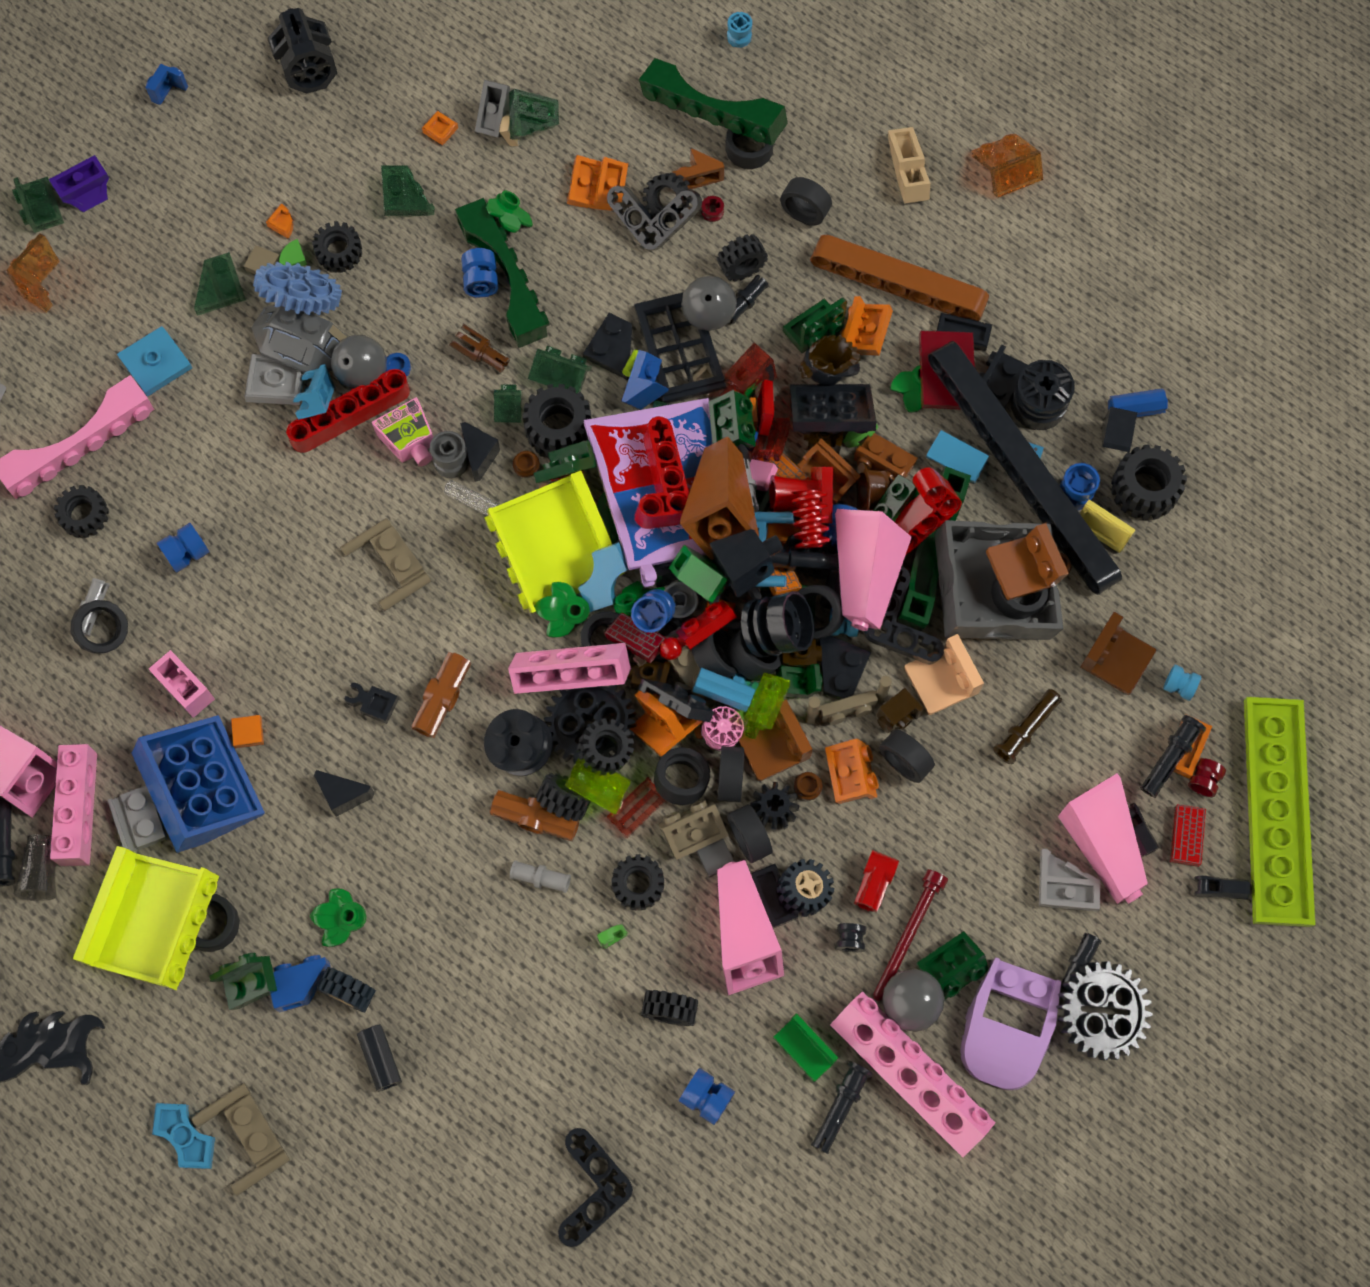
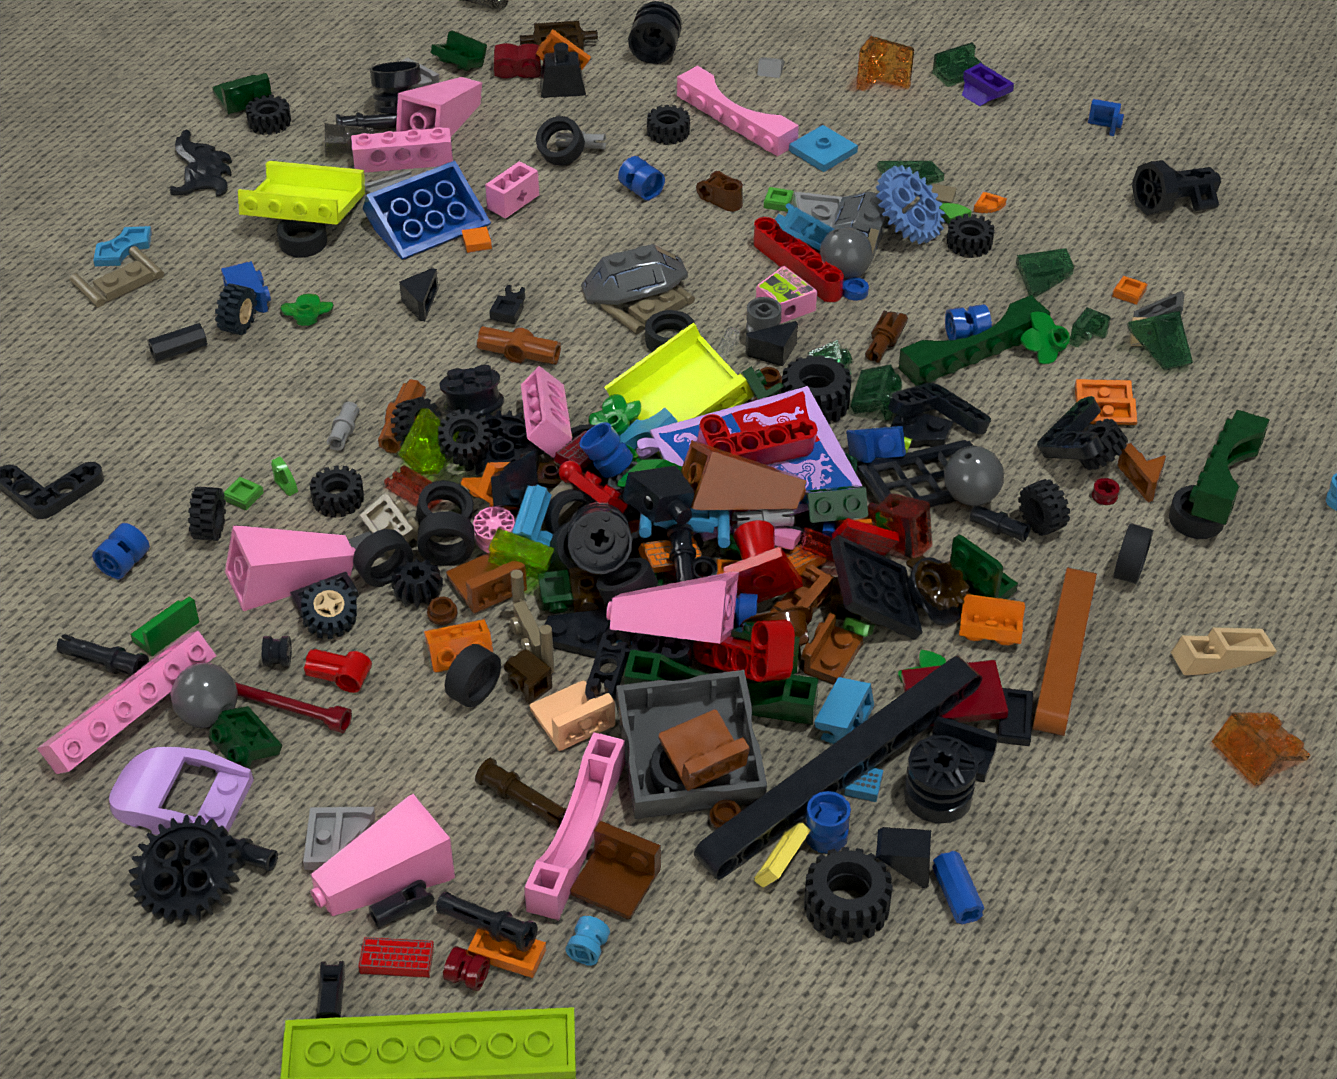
camera: 85 degrees right, 25 degrees down
(215, 470) = (722, 191): none -> reddish brown piece
(235, 417) = (778, 198): none -> bright green tile
(246, 980) = (248, 254): dark green bracket -> none
(360, 571) = (633, 275): none -> dark grey wedge
(442, 526) = (662, 321): none -> black tyre
(494, 173) = (1088, 324): none -> clear green bracket
(574, 324) = (934, 396): none -> black beam
(623, 979) = (243, 493): none -> bright green tile
(810, 519) = (720, 547): red piece -> none
(1116, 699) = (561, 863): none -> bright pink arch

